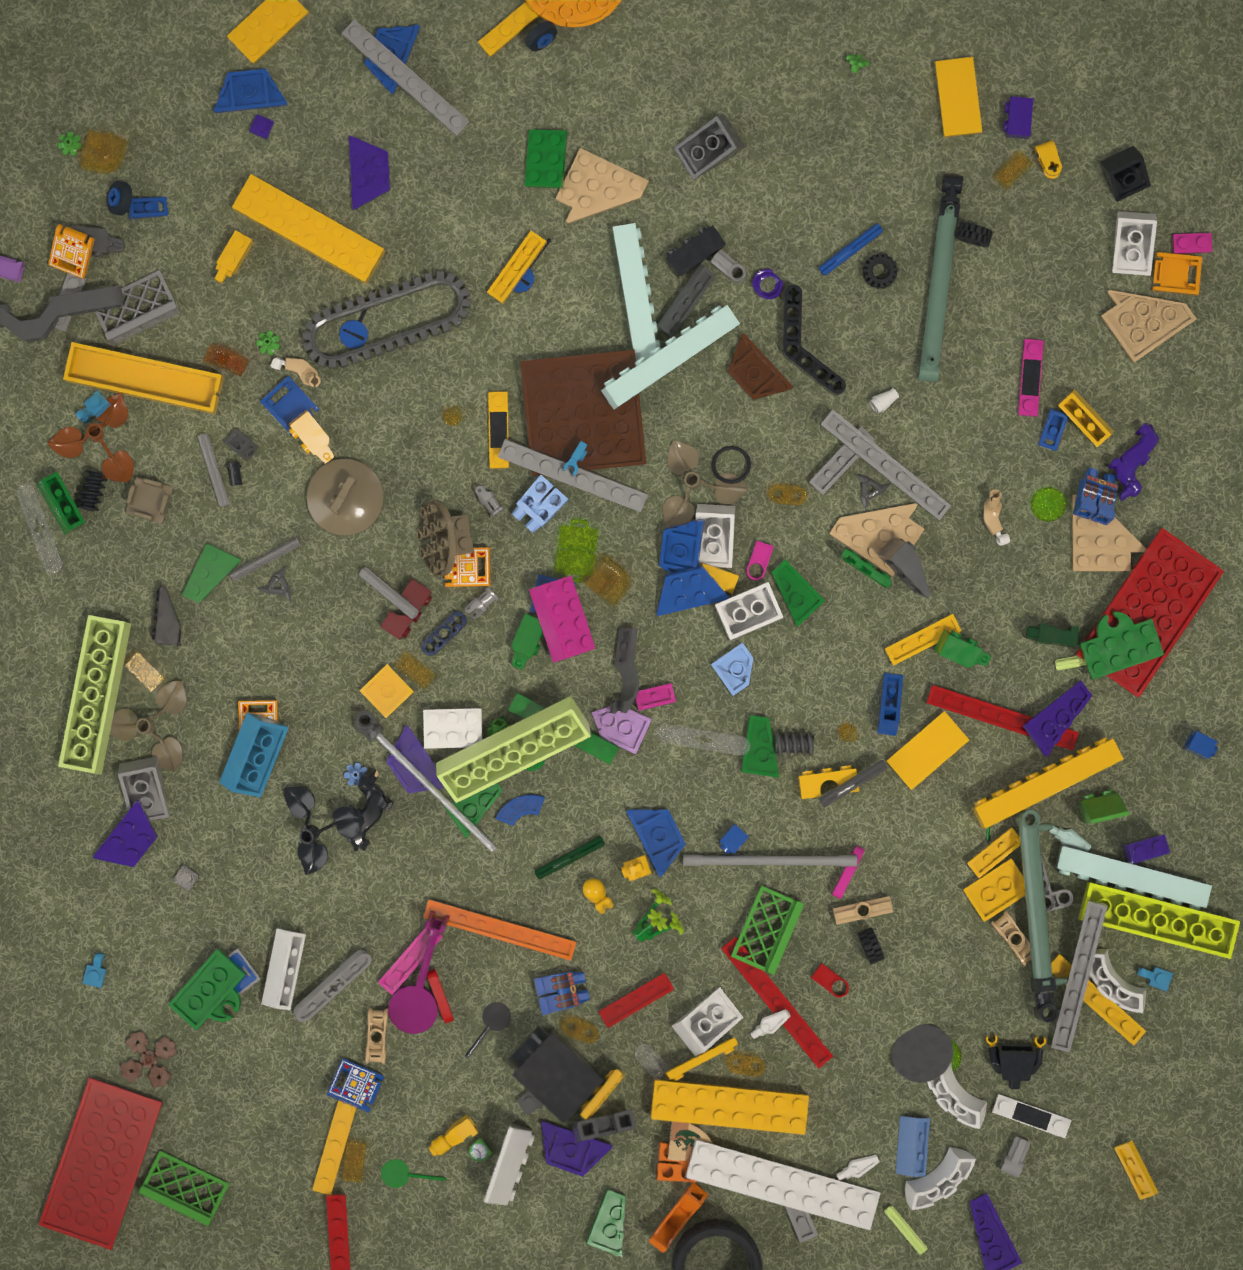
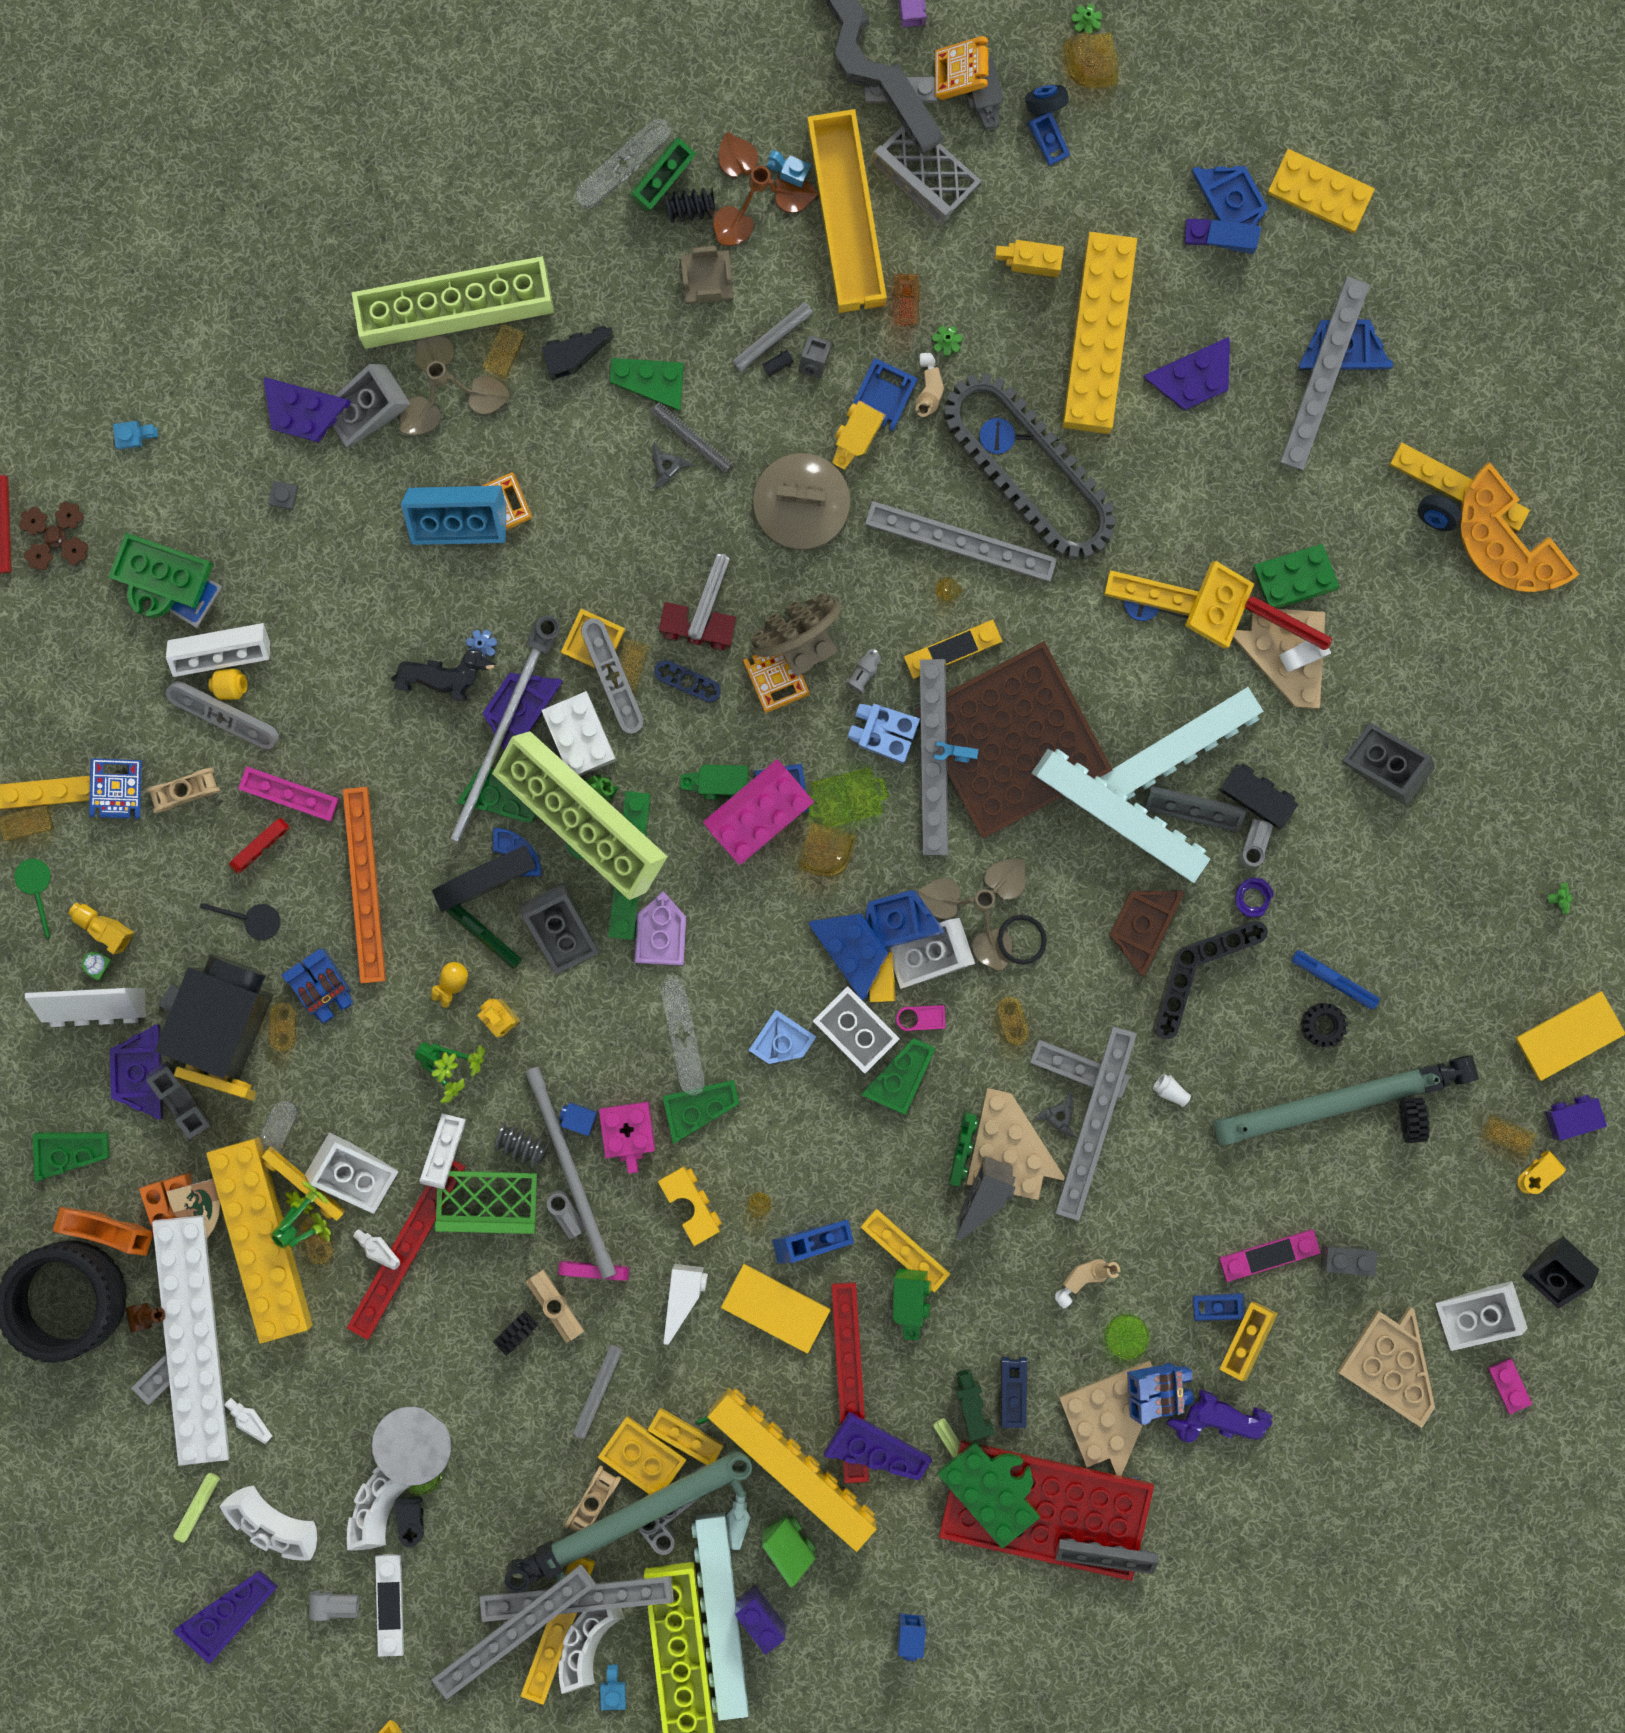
camera: 65 degrees right, 0 degrees up
(277, 102) = (1234, 236): none -> blue slope
(311, 972) = (228, 684): none -> yellow head
(314, 855) = (367, 629): black plant -> none
(400, 686) = (603, 653): none -> light grey piece
(413, 1006) = (234, 819): magenta piece -> none
(421, 392) = (961, 541): none -> light grey plate
(481, 603) = (740, 710): light grey piece -> none
(531, 839) = (483, 879): none -> black slope
(544, 222) = (1219, 604): none -> yellow plate
(578, 179) = (1288, 623): none -> red axle
(588, 799) = (559, 928): none -> dark grey slope
(605, 176) = (1302, 655): none -> white leg
(625, 664) = (735, 907): dark grey piece -> none
(636, 1000) = (343, 1078): red plate -> none
(655, 697) = (710, 958): dark pink plate -> none
(658, 835) = (548, 1027): blue wing -> none
(718, 947) = (442, 1151): none -> white tile
(731, 1082) = (285, 1232): none -> plant
(736, 889) = (520, 1146): none -> dark grey piece
(751, 1214) = (142, 1316): none -> reddish brown pin
(769, 807) = (617, 1142): none -> dark pink hinge
(794, 744) = (720, 1146): dark grey piece -> none
(800, 875) = (567, 1216): none -> light grey piece
(826, 978) = (457, 1294): red piece -> none
(853, 783) = (699, 1235): dark grey axle -> none
(891, 812) = (684, 1292): none -> white slope
(912, 1146) = (298, 1476): medium blue panel -> none
(937, 904) = (597, 1391): none -> light grey axle
(972, 1076) = (409, 1515): none -> black piece
(1016, 1061) = (446, 1562): black torso -> none
(1056, 322) = (1349, 1260): none -> dark grey brick
(1056, 602) = (1013, 1393): none -> dark blue plate
(1085, 1030) = (513, 1631): none -> light grey plate
(1173, 273) = (1465, 1377): light orange container -> none
(1198, 582) = (1104, 1556): none -> dark grey plate

